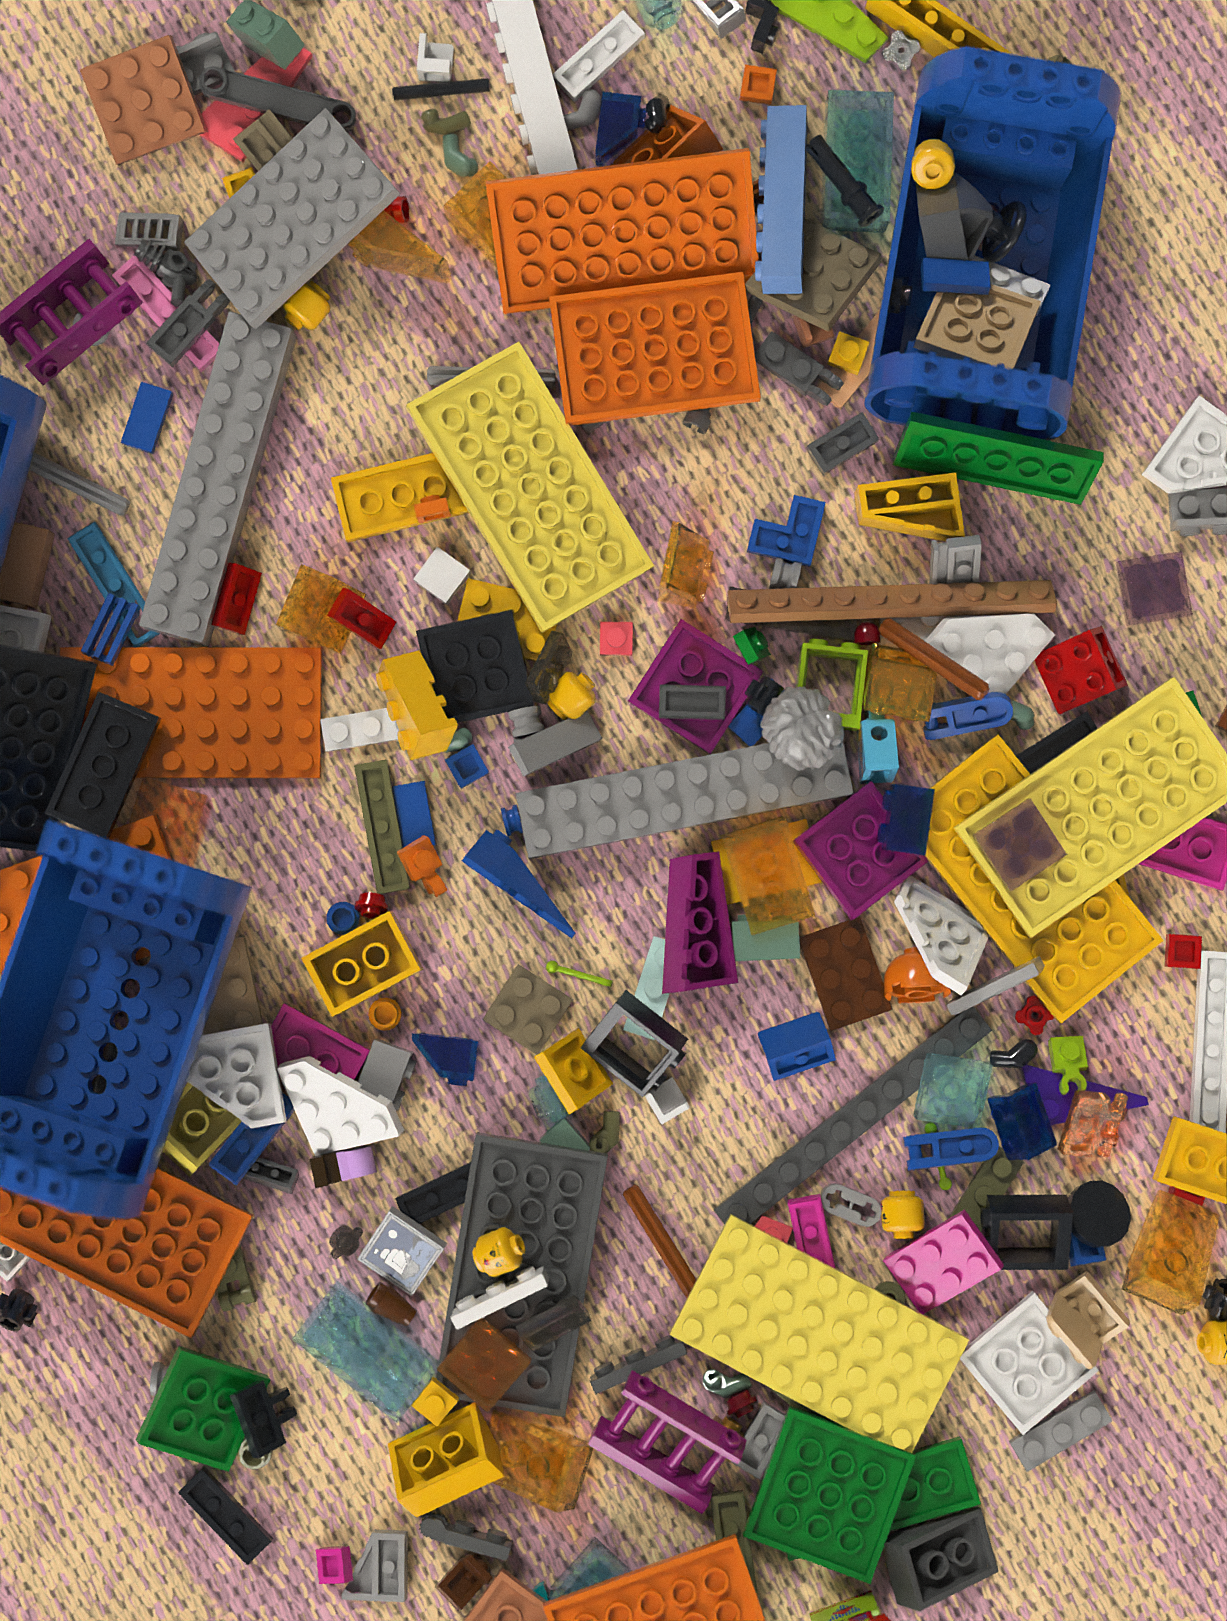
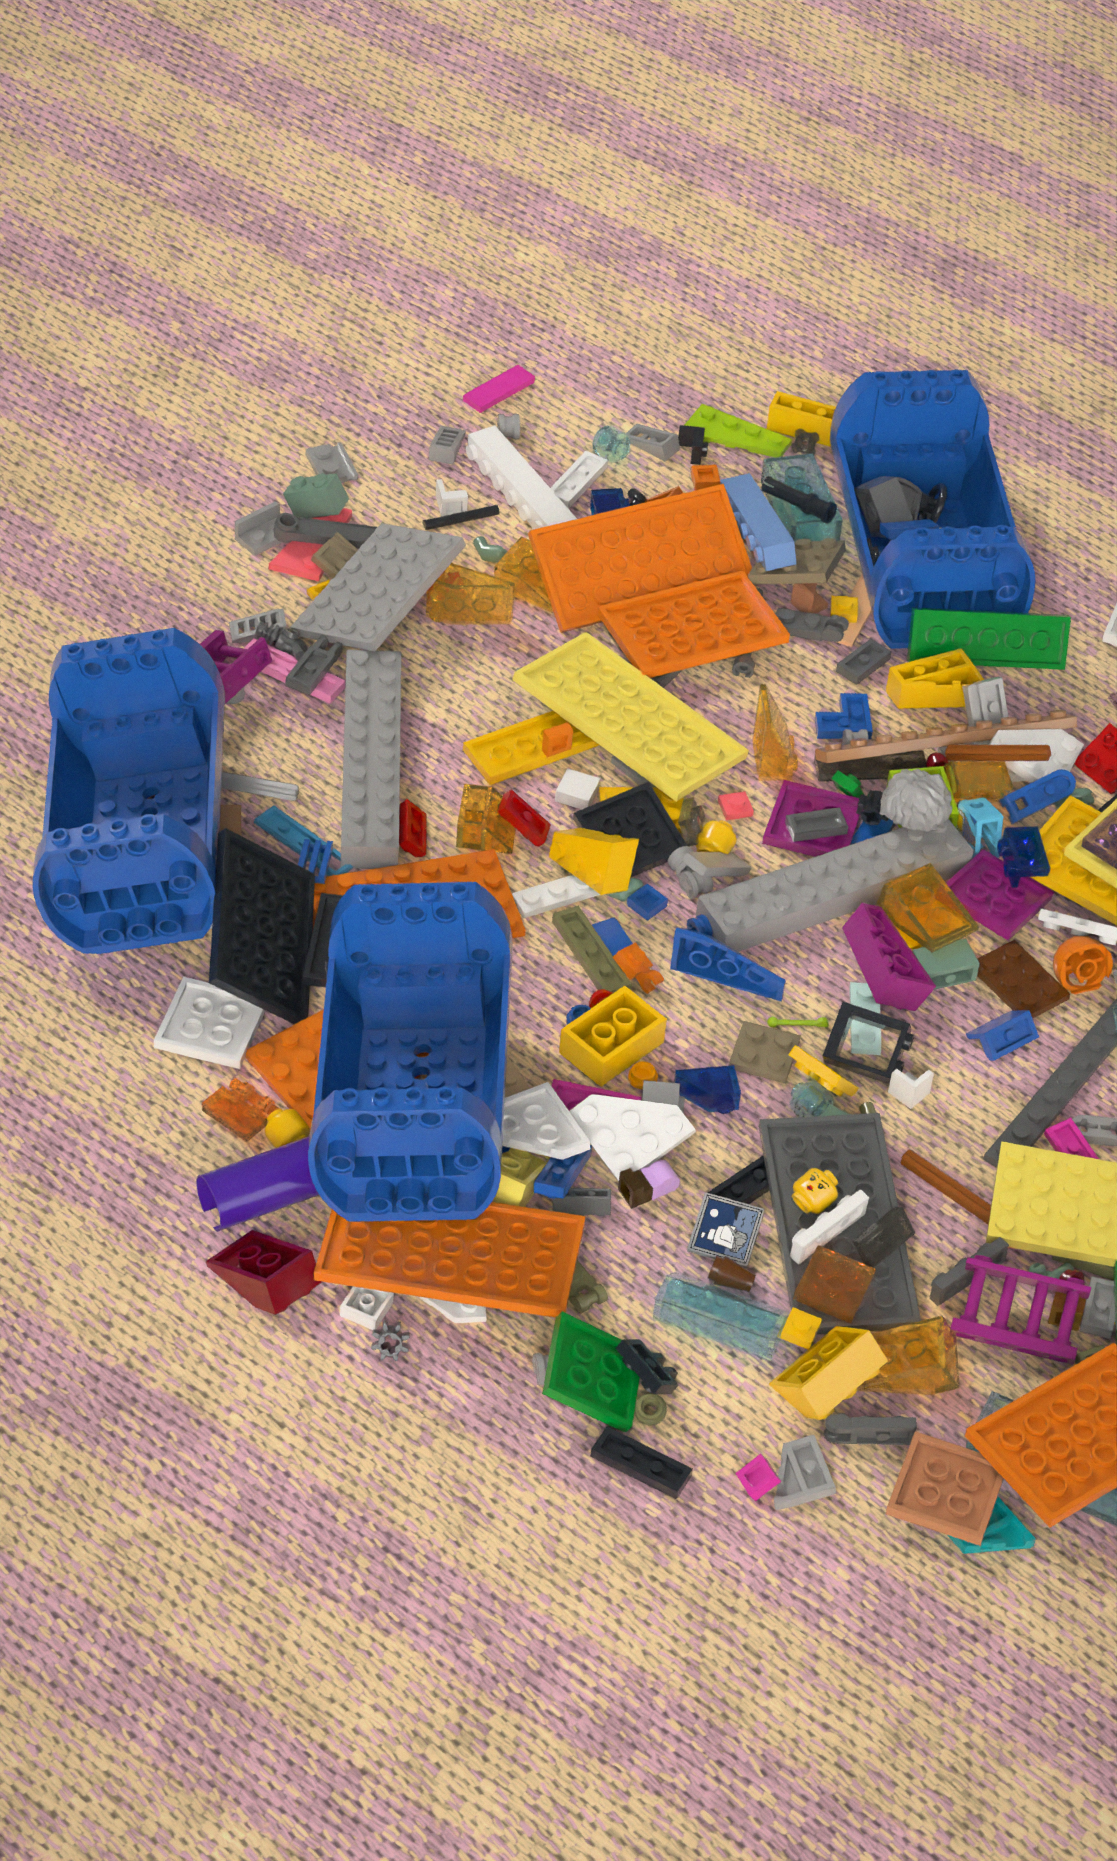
camera: 20 degrees left, 40 degrees down
(143, 100) = (231, 549): nougat plate -> none
(147, 417) = (295, 736): blue tile -> none
(307, 307) = (408, 642): yellow head -> none
(345, 1241) = (672, 1235): clear smoke plate -> none
(447, 125) = (469, 535): olive arm -> none
(464, 1580) = (884, 1461): reddish brown bracket -> none
(587, 111) = (581, 508): light grey arm -> none
(932, 164) = (864, 467): yellow head -> none

